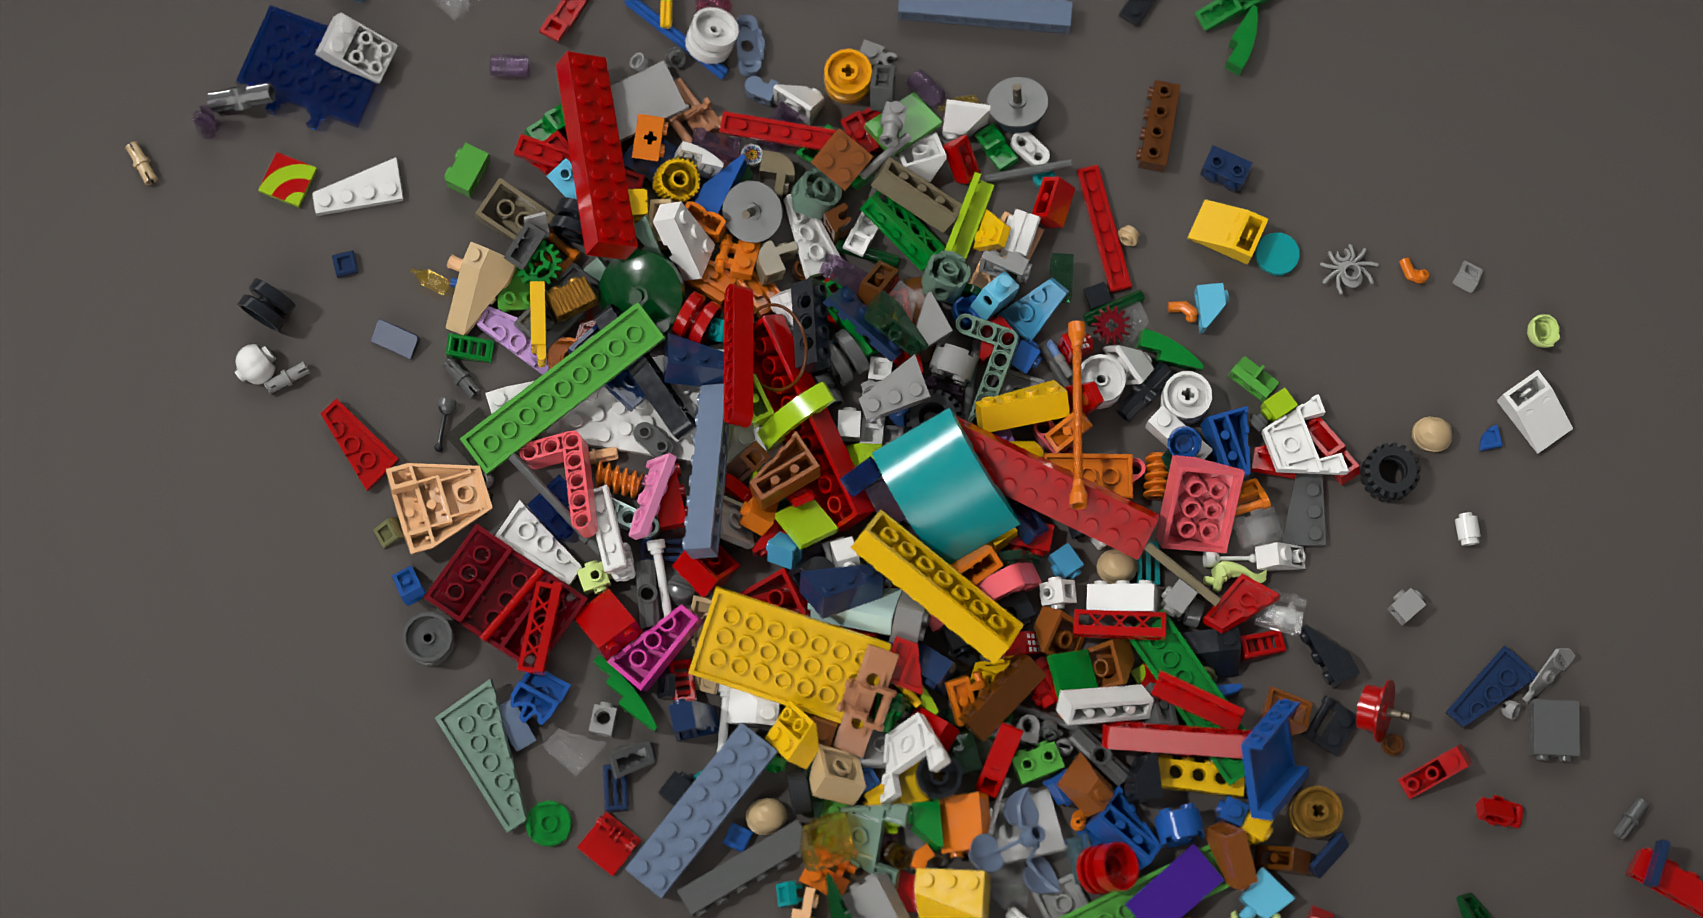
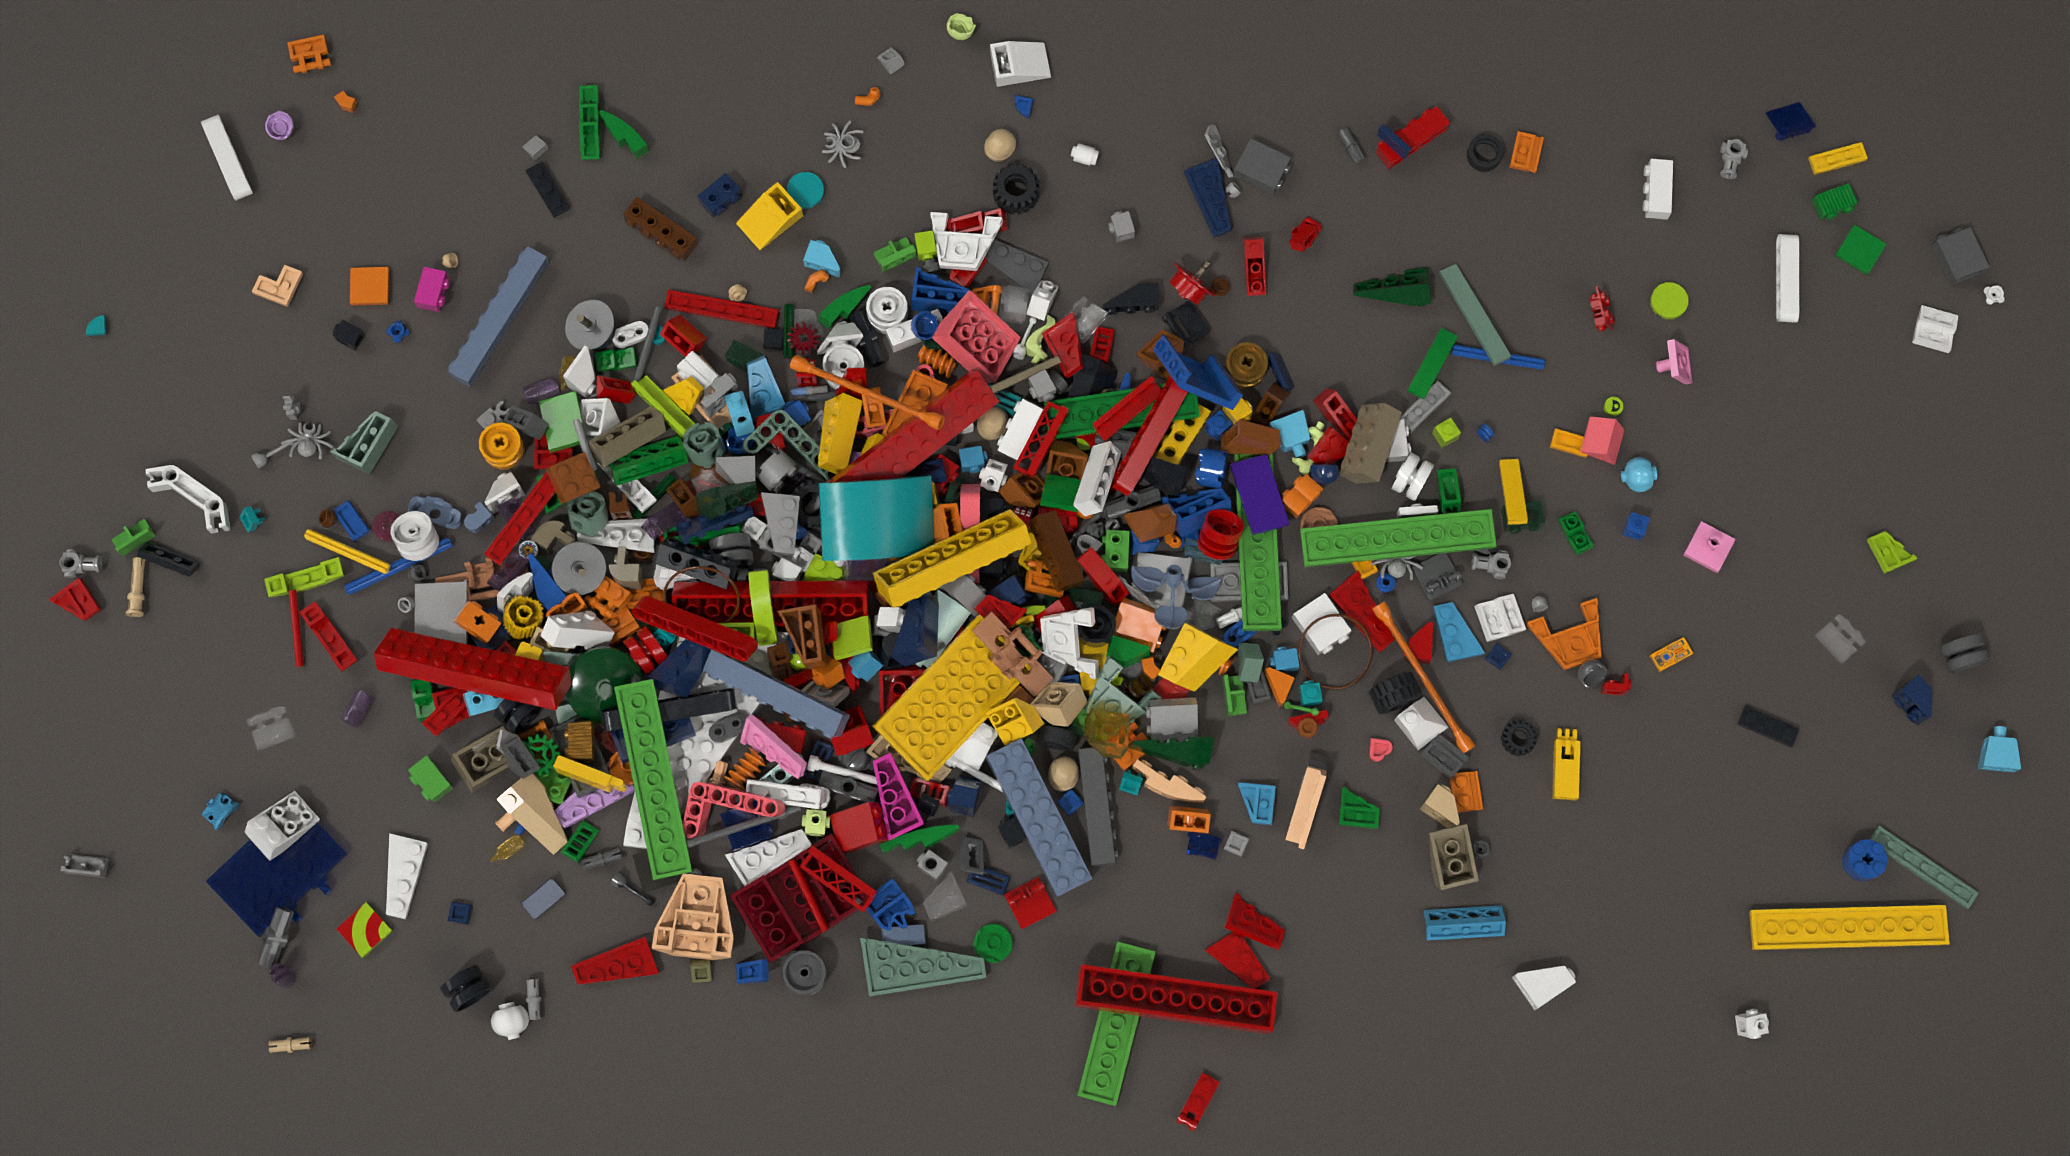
camera: 65 degrees left, 0 degrees up
(861, 476) = (837, 577): clear blue slope -> none
(892, 123) = (559, 426): light grey connector -> none

